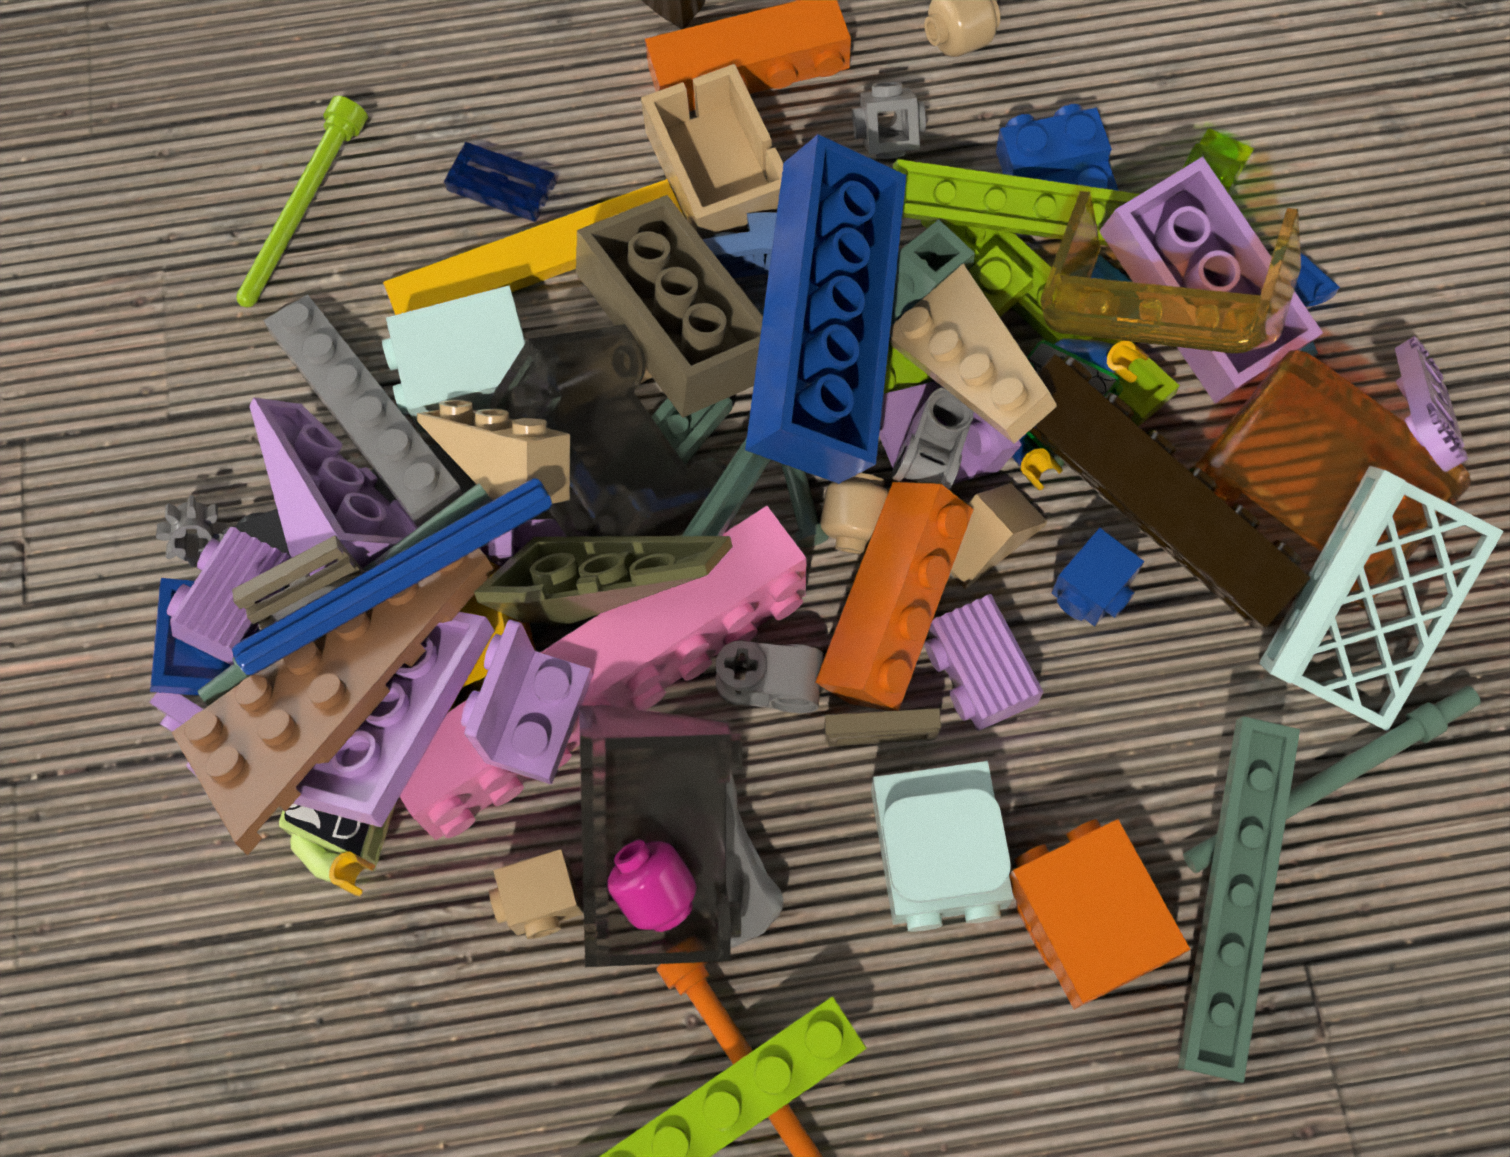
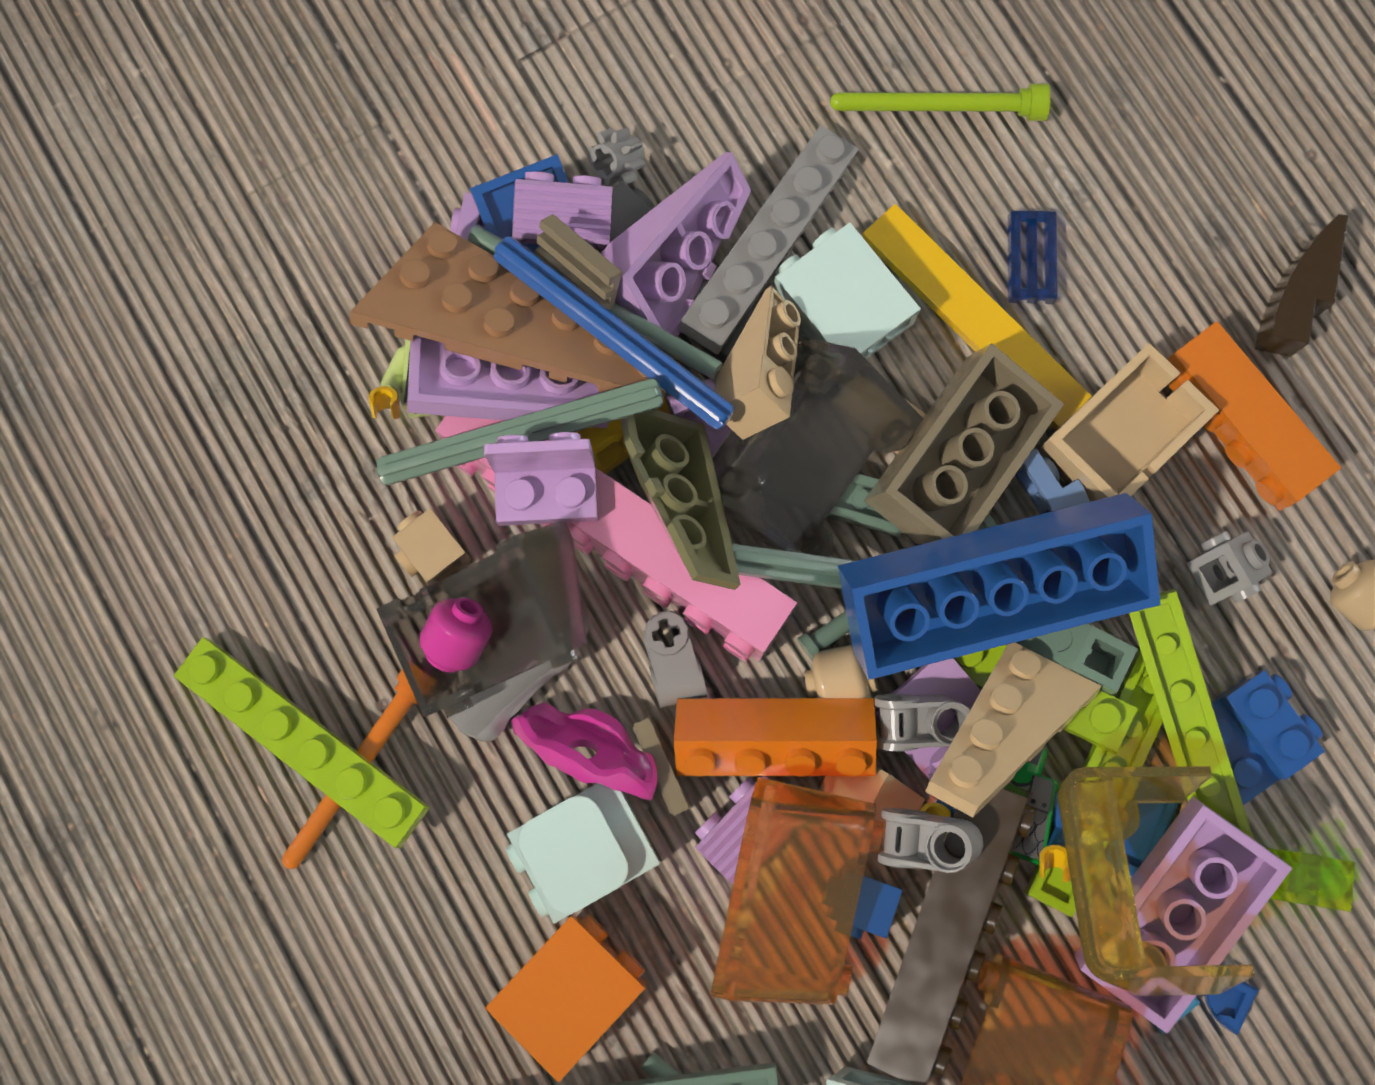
camera: 65 degrees right, 10 degrees up
(453, 748) = (536, 426): none -> sand green axle
(809, 815) = (616, 760): none -> dark pink piece
(1062, 469) = (917, 840): none -> light grey piece
(1072, 629) = (795, 896): none -> clear orange windscreen

